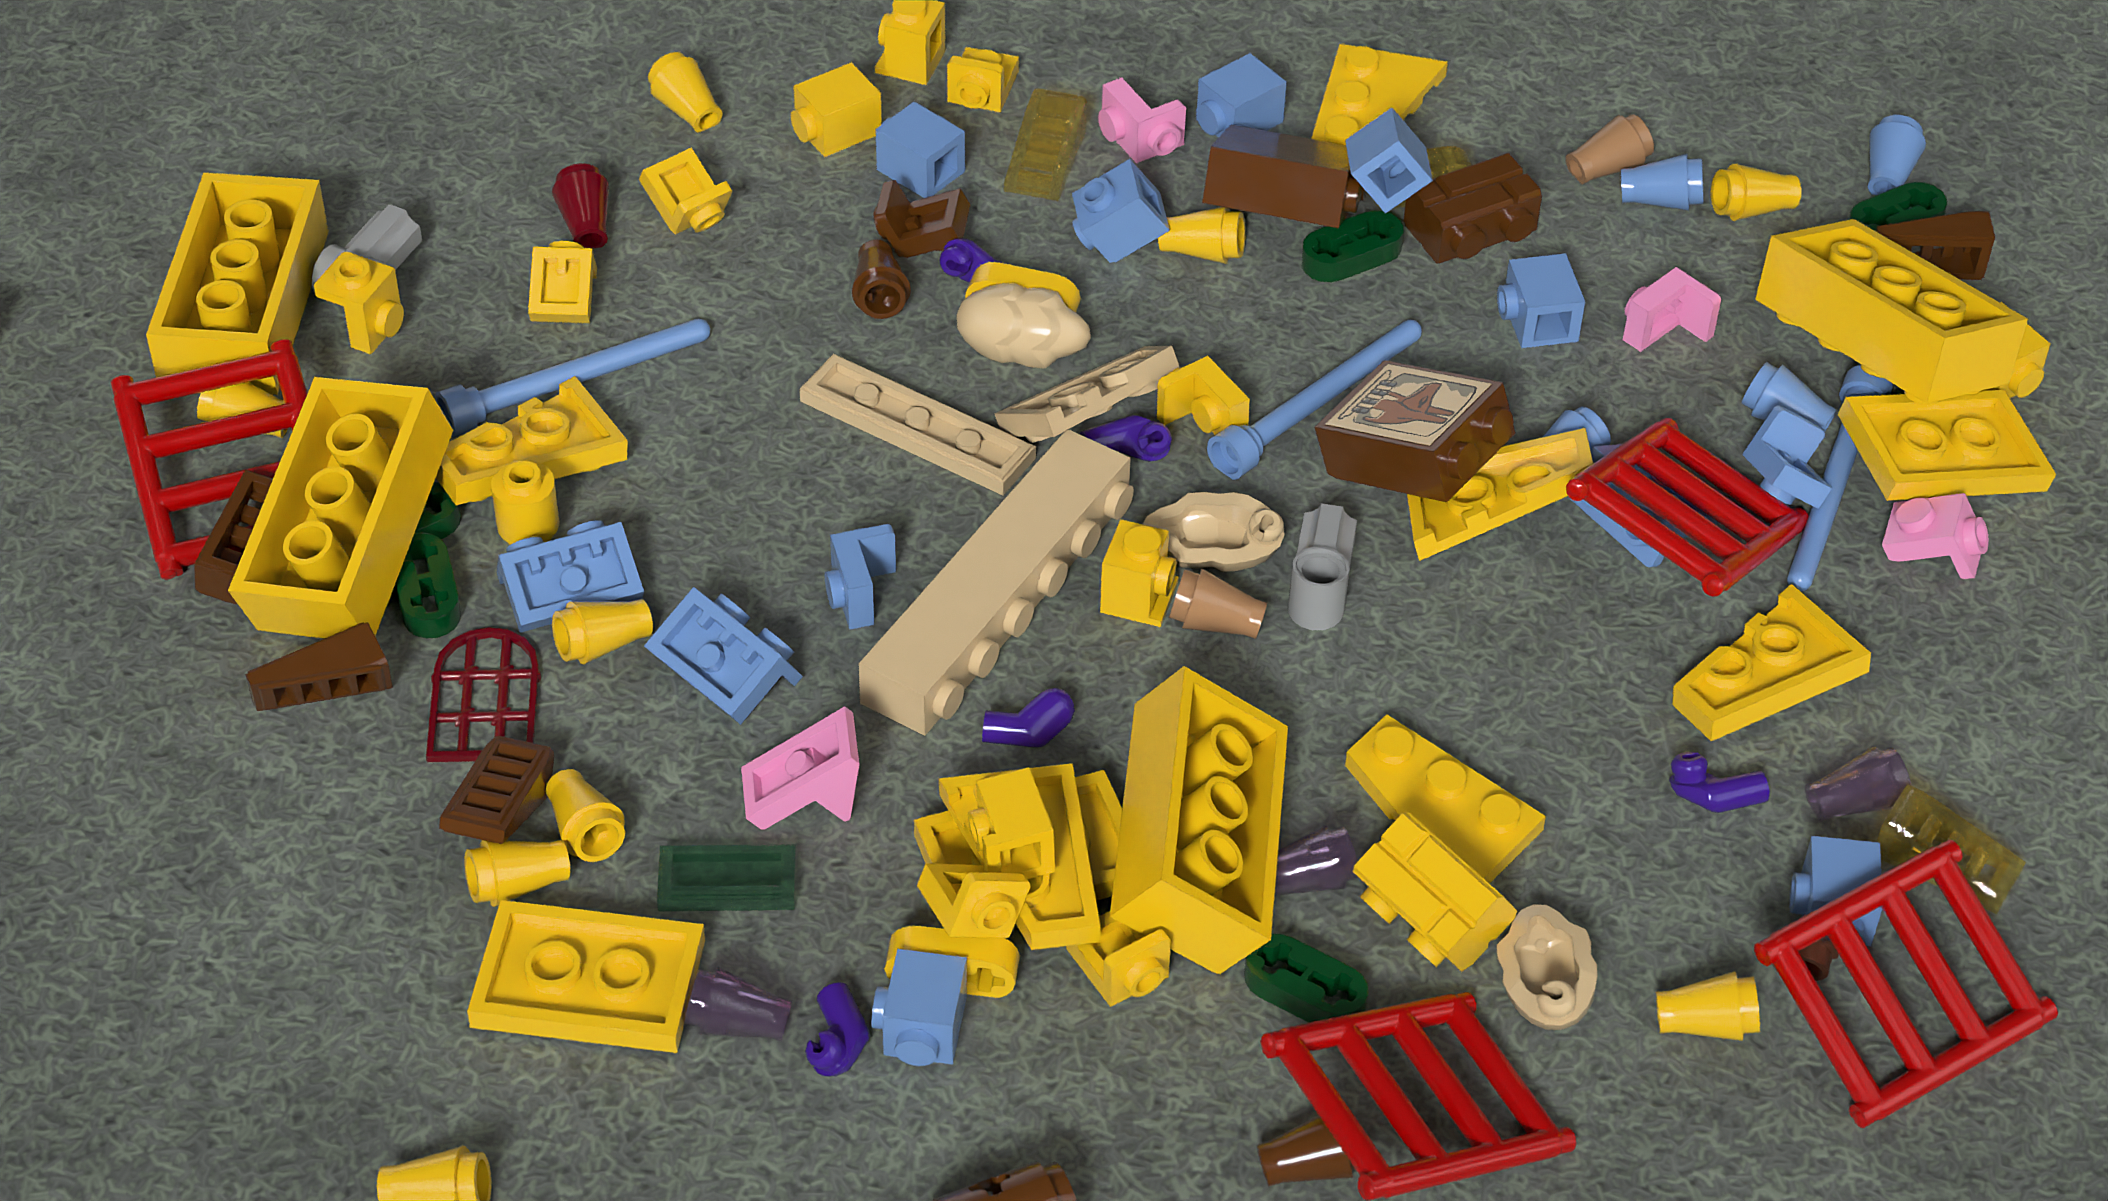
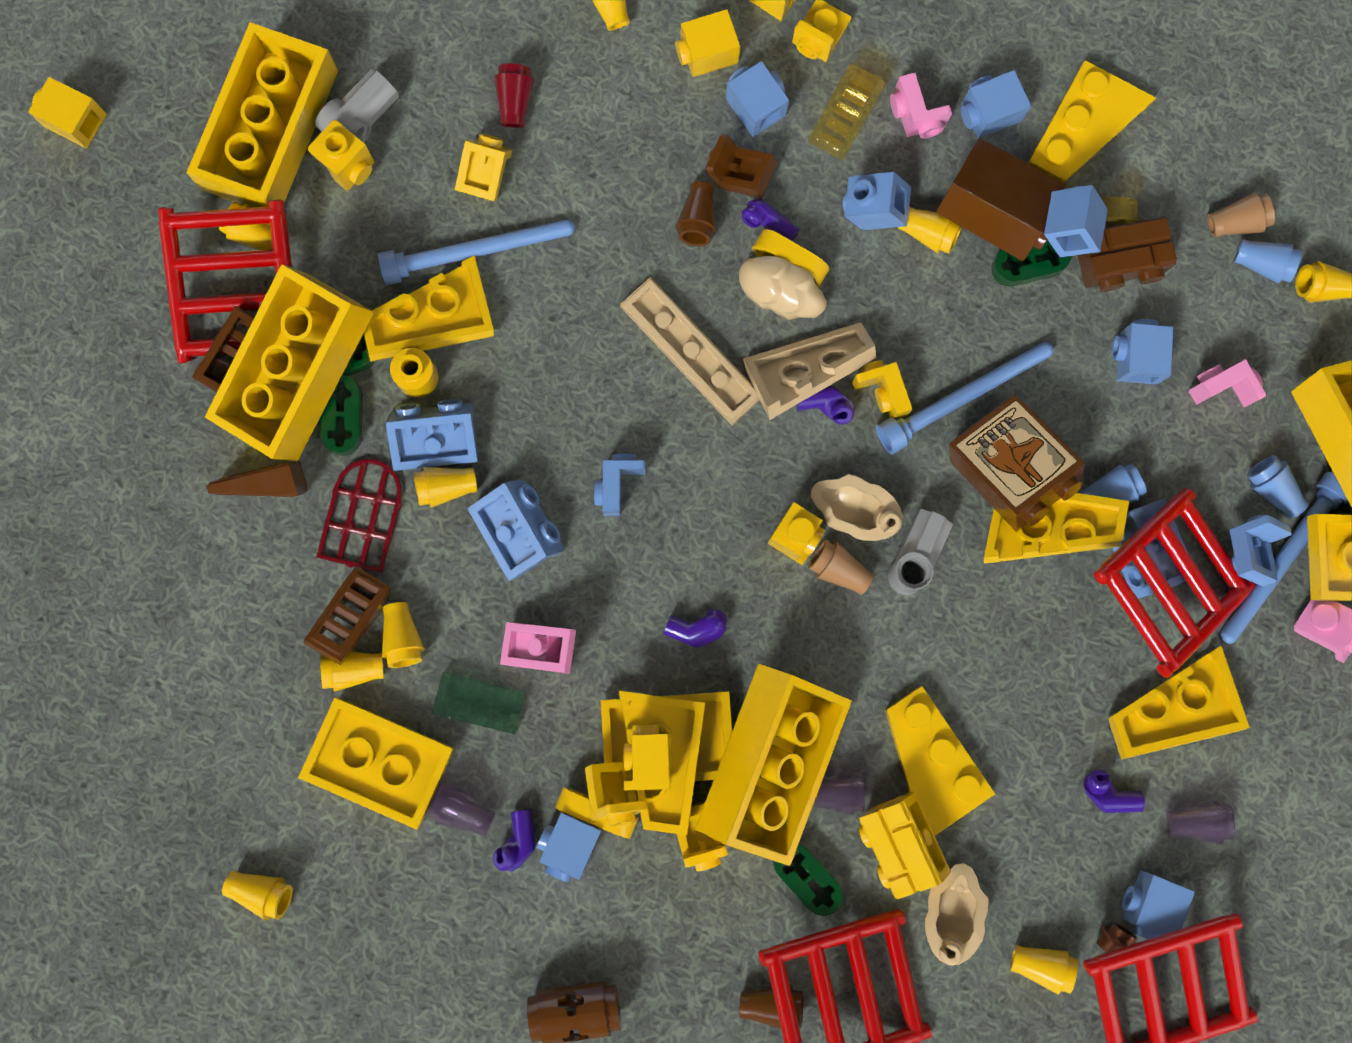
camera: 10 degrees right, 35 degrees up
(685, 192) = (585, 100): yellow bracket -> none
(995, 583) = (705, 512): tan brick -> none
(1939, 823) = (1214, 860): clear yellow slope -> none

